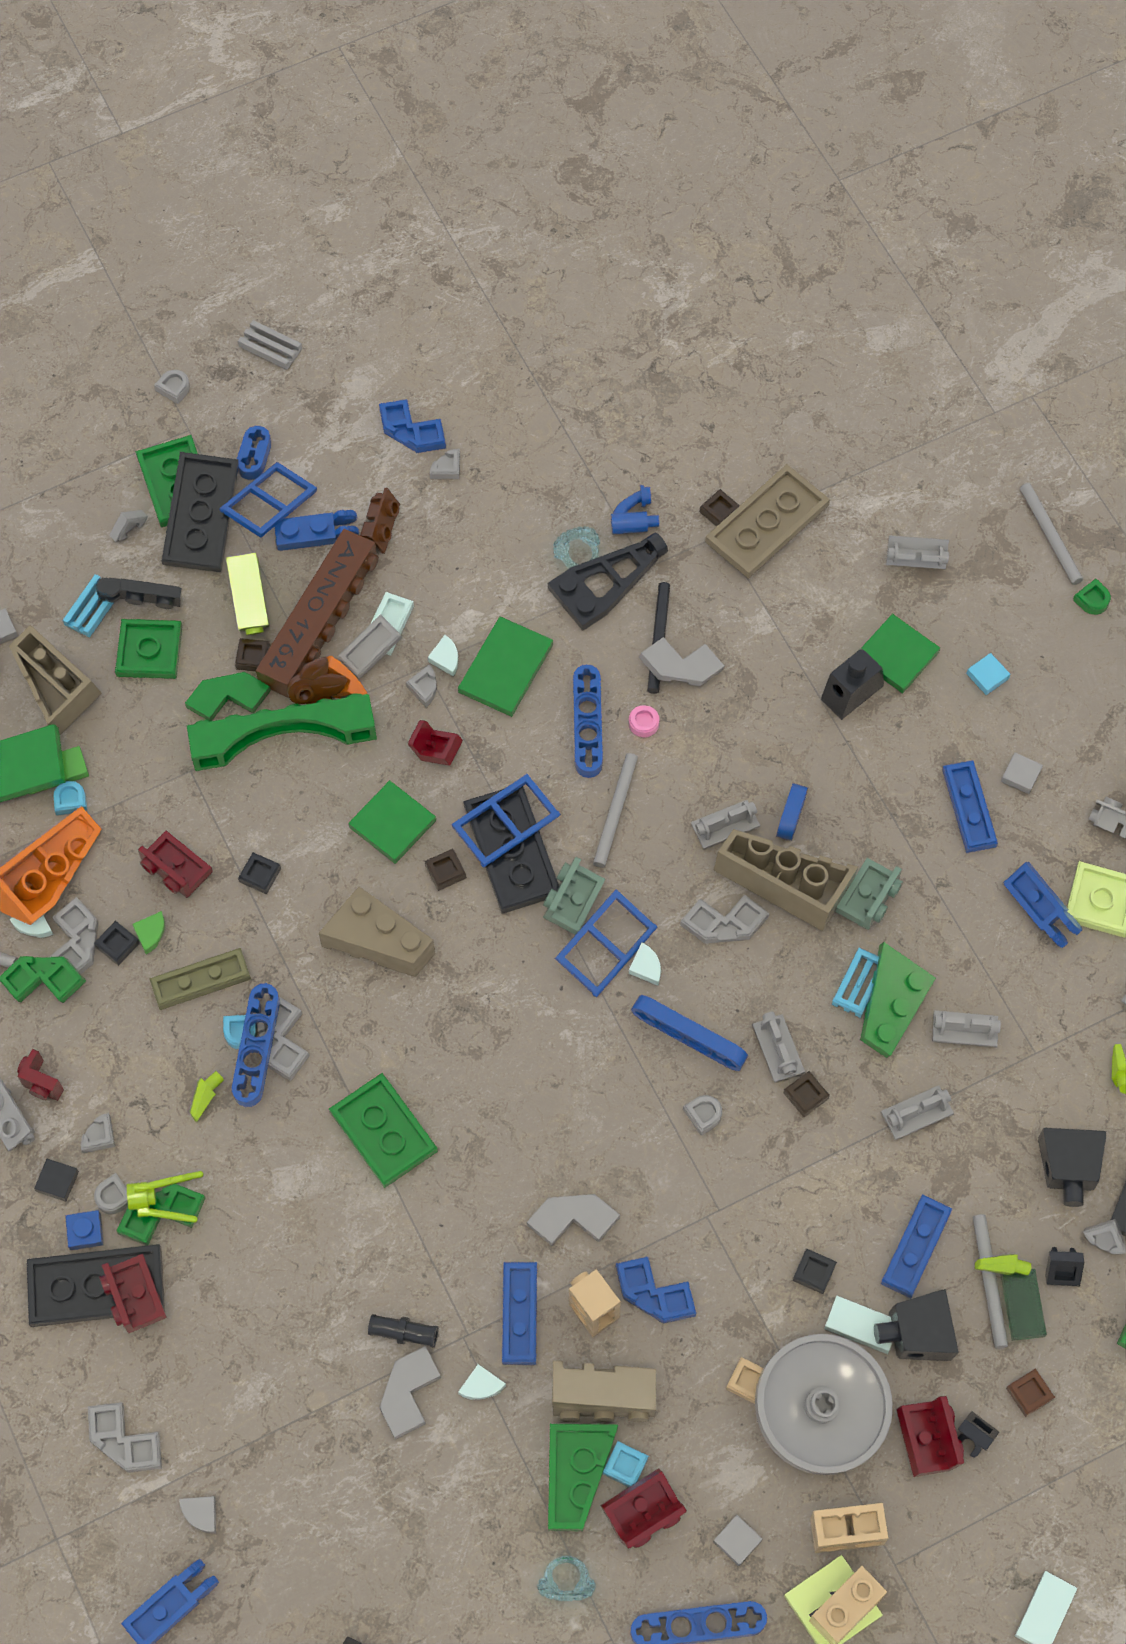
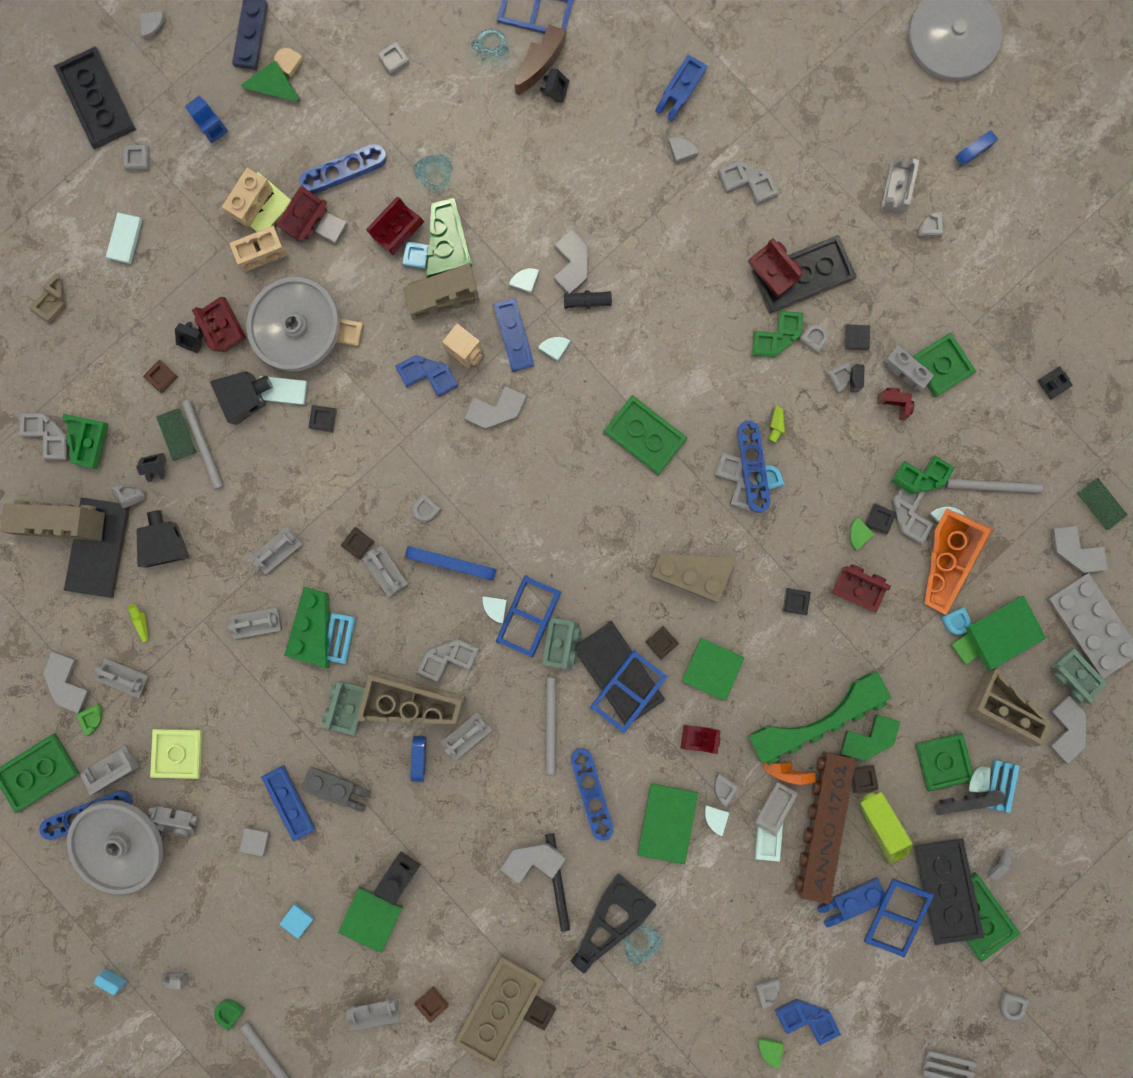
camera: 165 degrees right, 20 degrees up
(79, 1121) = (857, 377): none -> black tile
(84, 1230) = (825, 308): blue plate -> none
(115, 616) = (980, 780): none -> light aqua tile
(143, 1195) = (792, 337): lime plant -> none
(200, 979) = (811, 509): olive tile -> none
(259, 454) = (920, 960): blue beam -> none
(315, 682) = (806, 759): reddish brown plate -> none
(383, 510) = (804, 935): reddish brown hinge -> none
(464, 407) = (771, 1051): none -> bright green tile
(468, 1279) = (554, 347): none -> light aqua tile
(634, 521) = (608, 978): blue plant -> none
(643, 721) = (549, 806): bright pink tile -> none
(774, 1566) = (301, 214): none -> dark red bracket
(846, 548) = (431, 1004): none -> reddish brown tile
(907, 806) = (333, 788): none -> dark grey hinge
(916, 1246) = (257, 455): blue tile -> none
(1004, 1265) = (192, 453): lime bar -> none
(1041, 903) = (218, 735): blue hinge -> none

